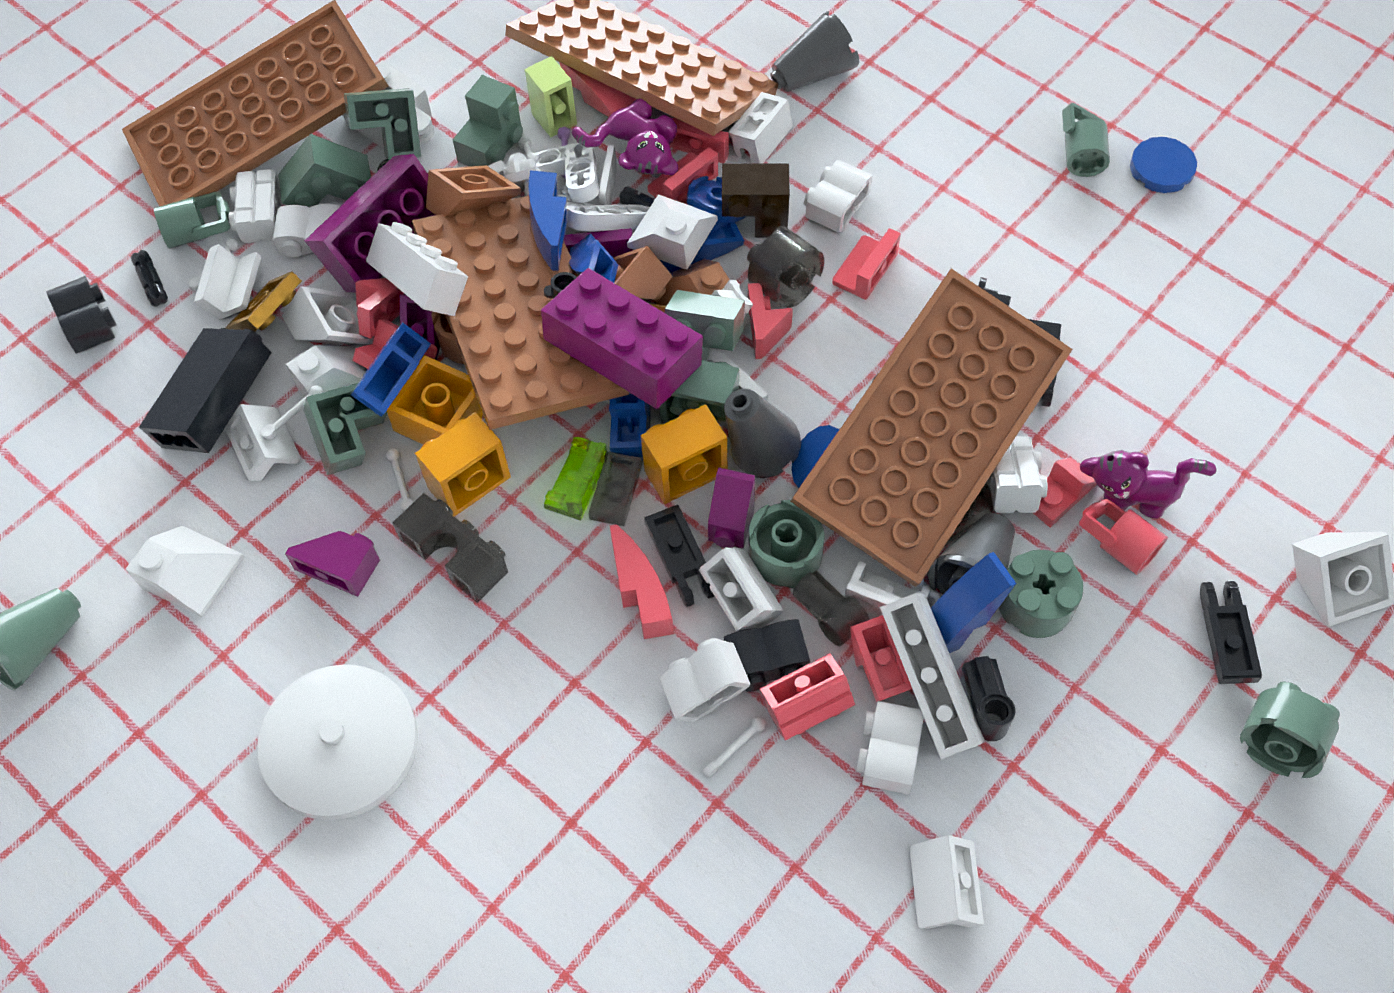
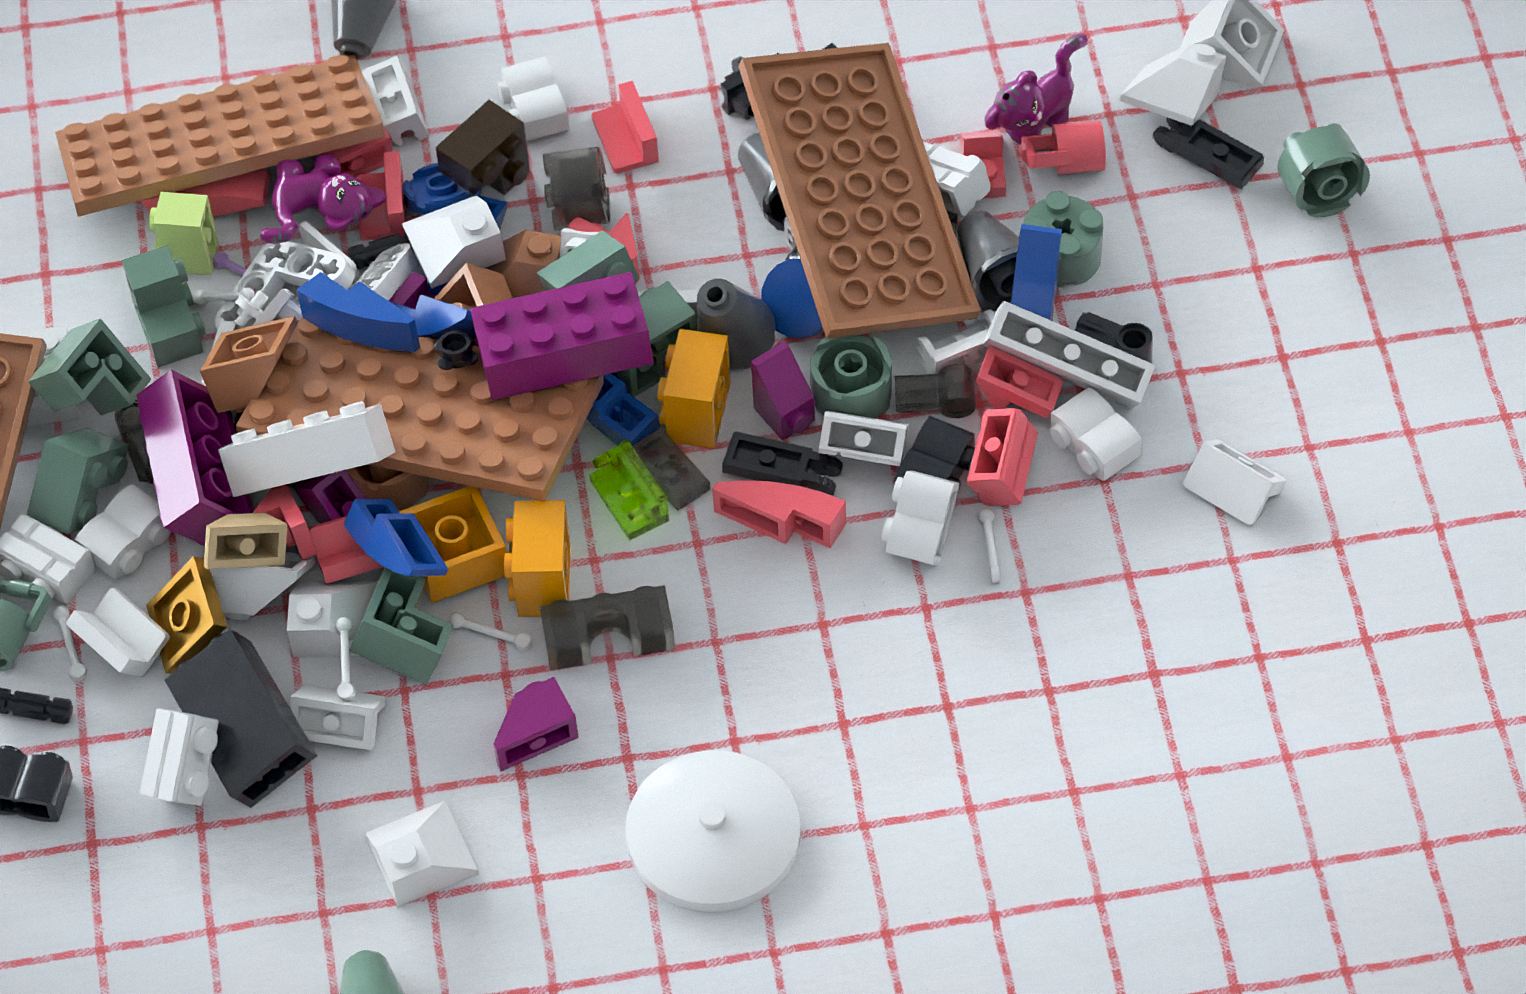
camera: 50 degrees left, 5 degrees down
(145, 377) = (179, 757): none -> white brick
(322, 287) = (245, 541): none -> tan slope
(1259, 567) = (1178, 83): none -> white slope

